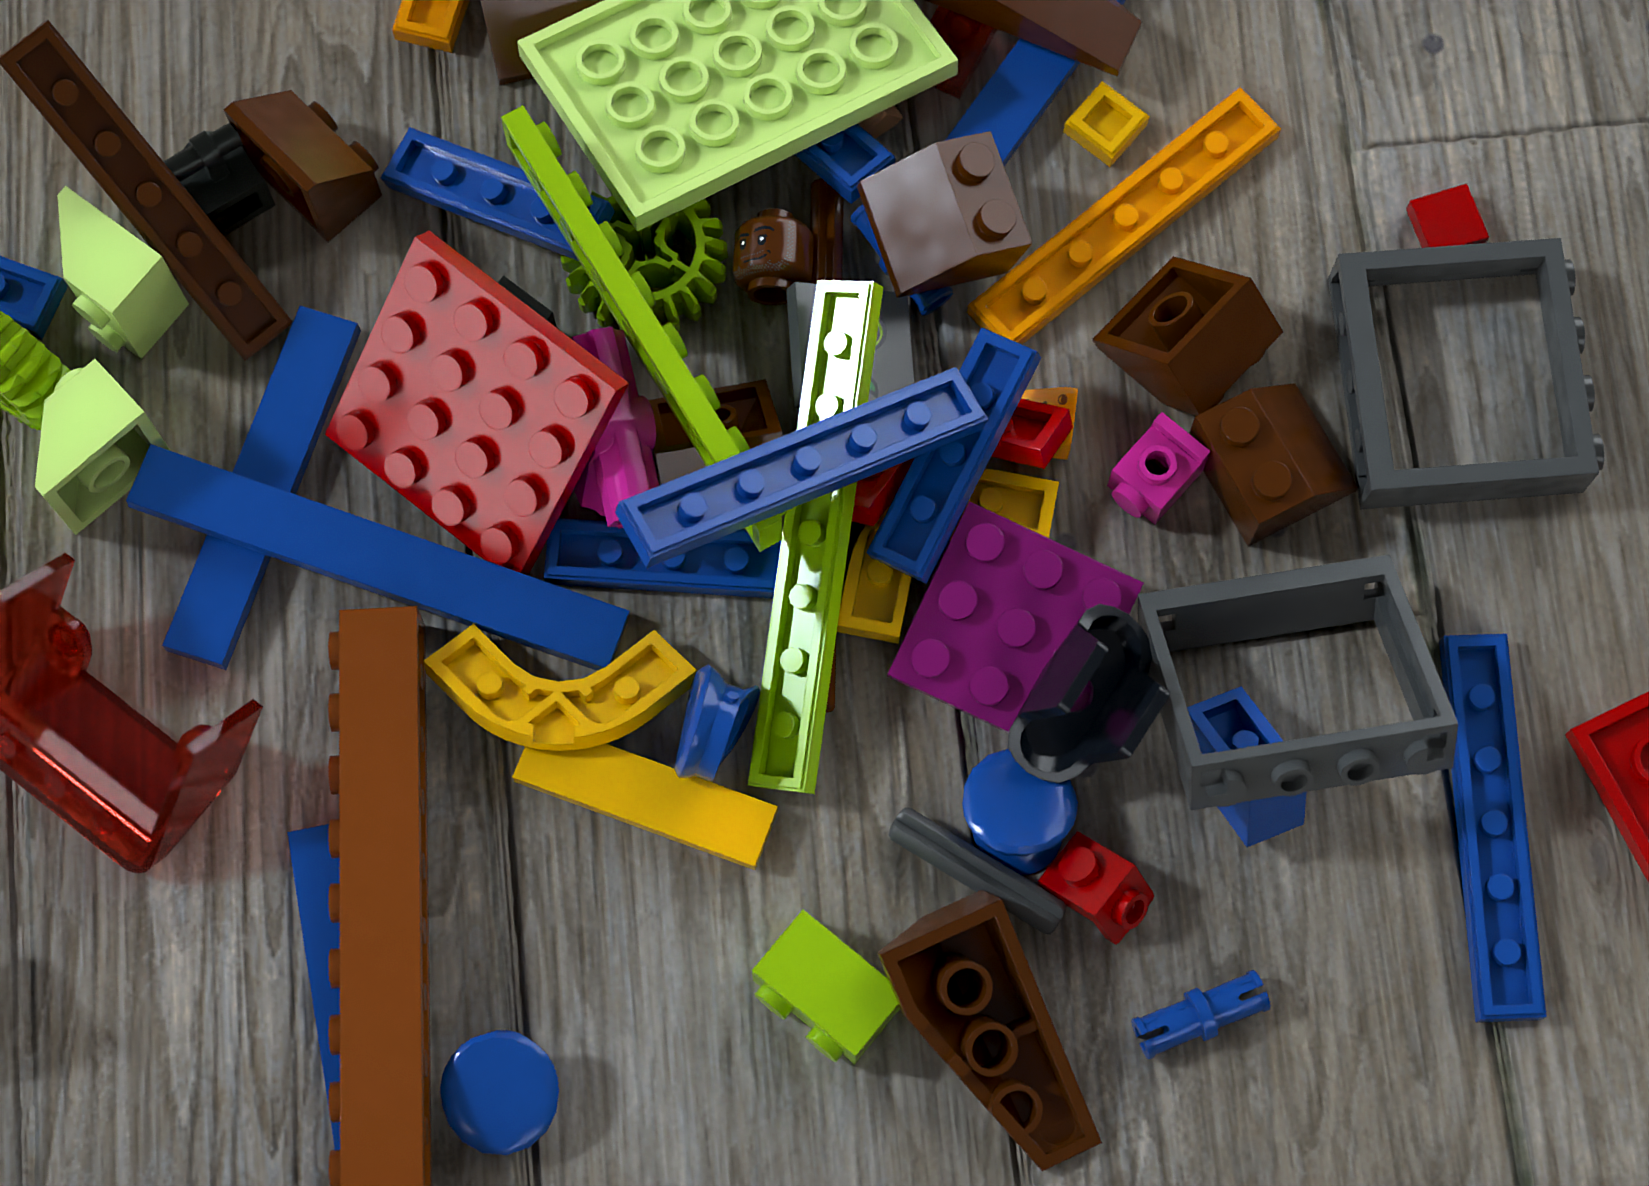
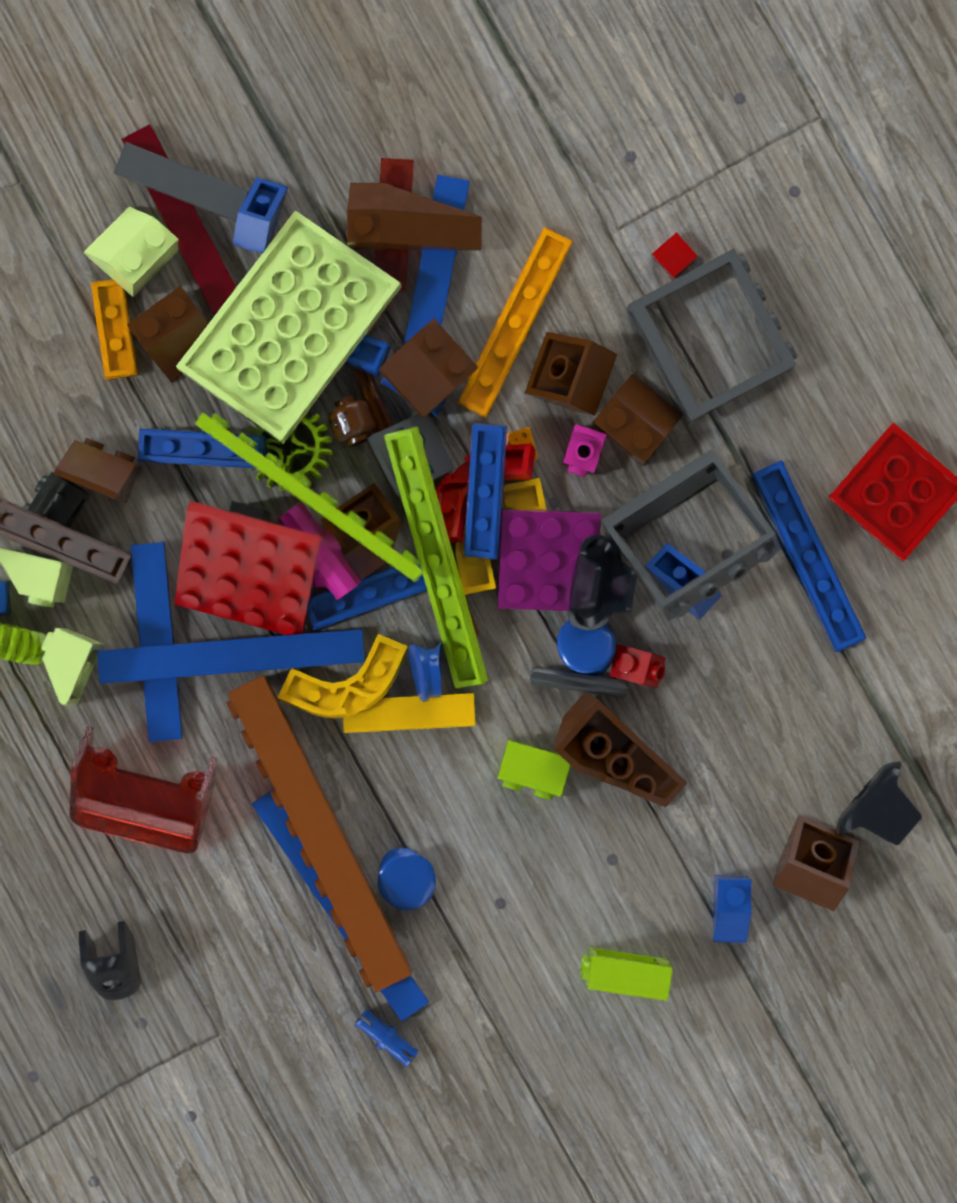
camera: 20 degrees left, 15 degrees up
(799, 467) = (420, 539): blue tile -> none
(1106, 124) = (484, 274): yellow tile -> none
(1201, 1014) = (708, 705): blue pin -> none

